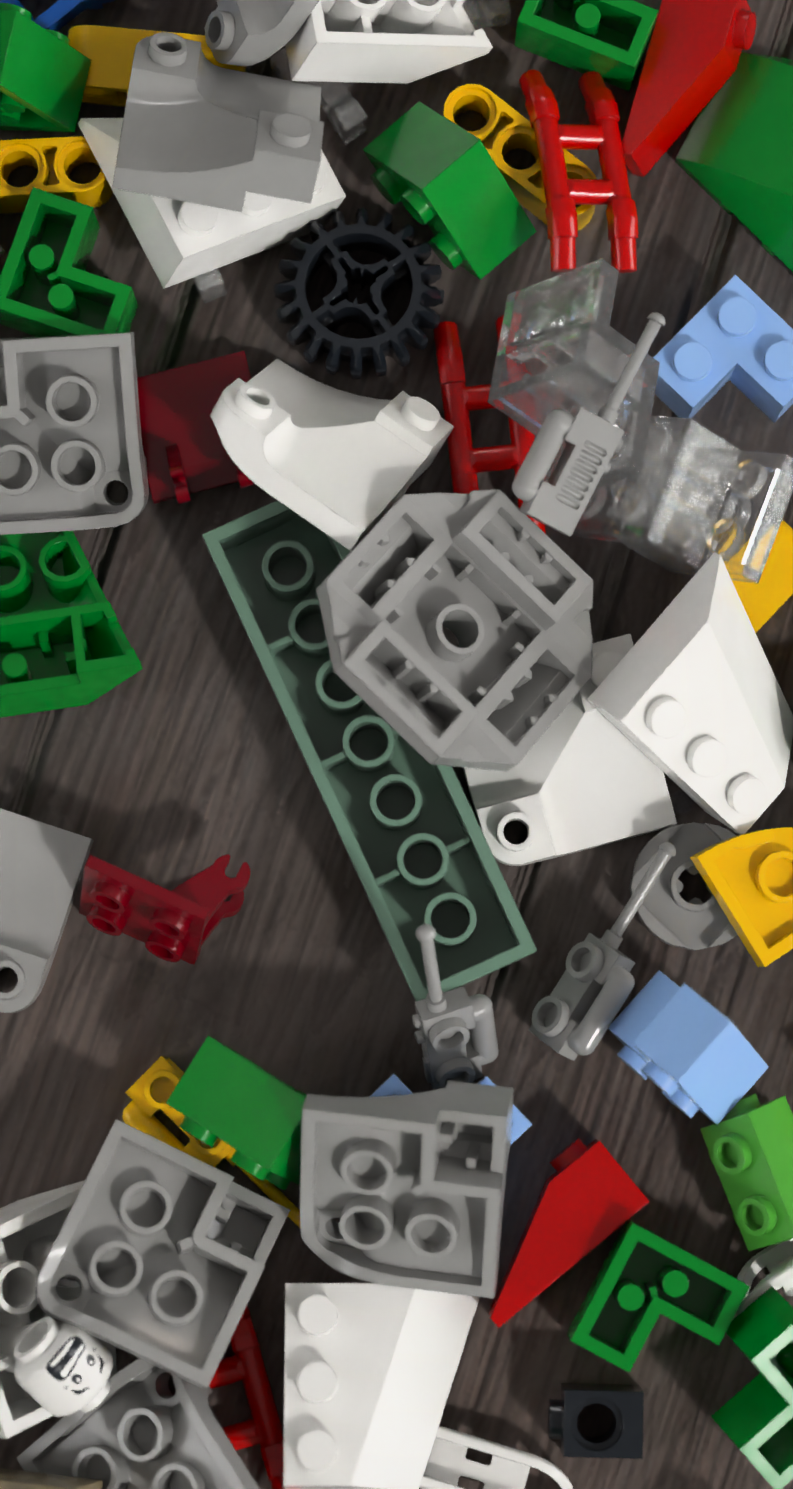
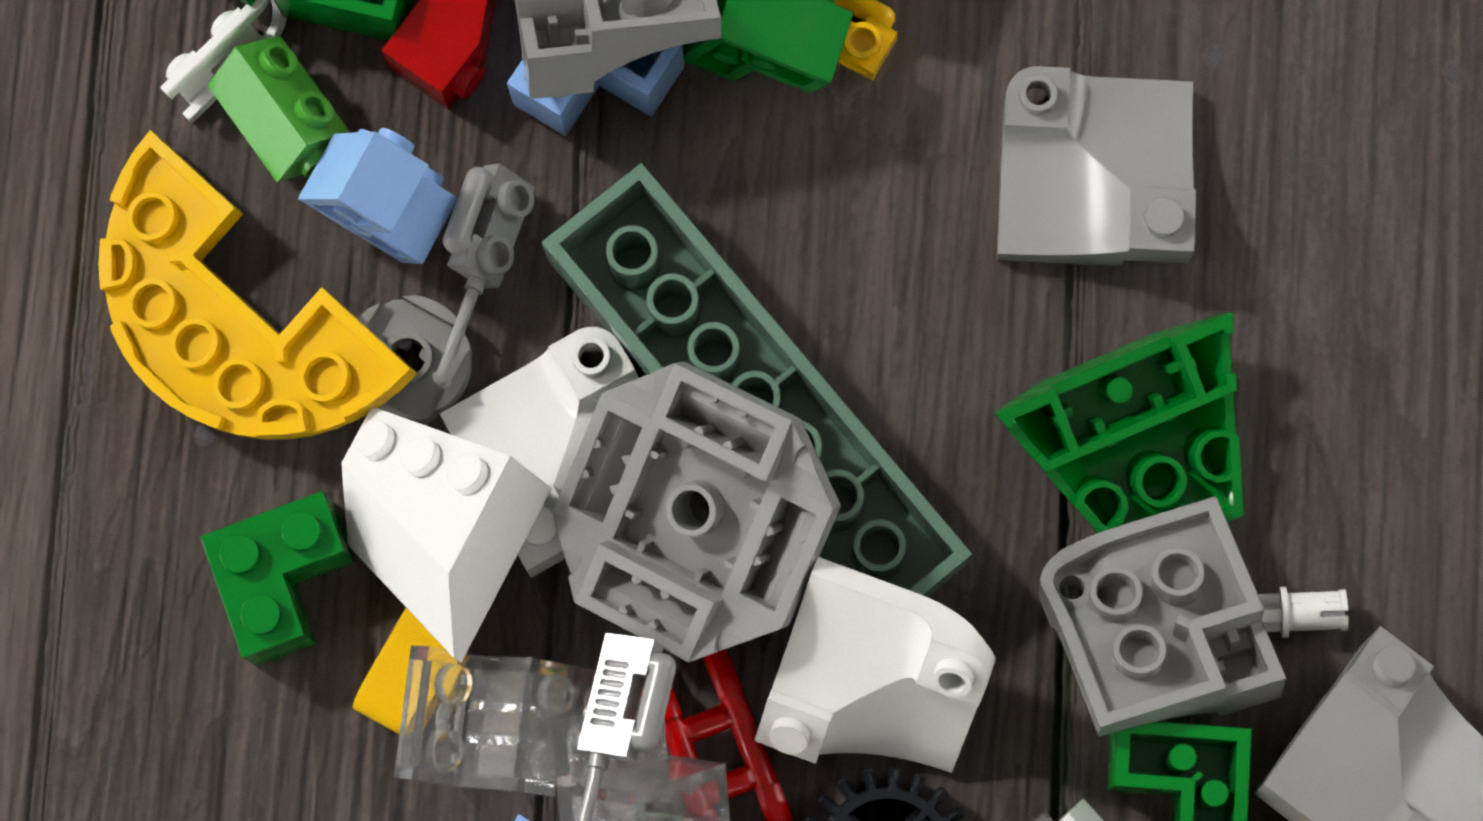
camera: 170 degrees right, 5 degrees down
(167, 921) = (891, 188): dark red plate -> none
(178, 432) = (1030, 683): dark red plate -> none
(446, 1022) = (603, 155): light grey piece -> none

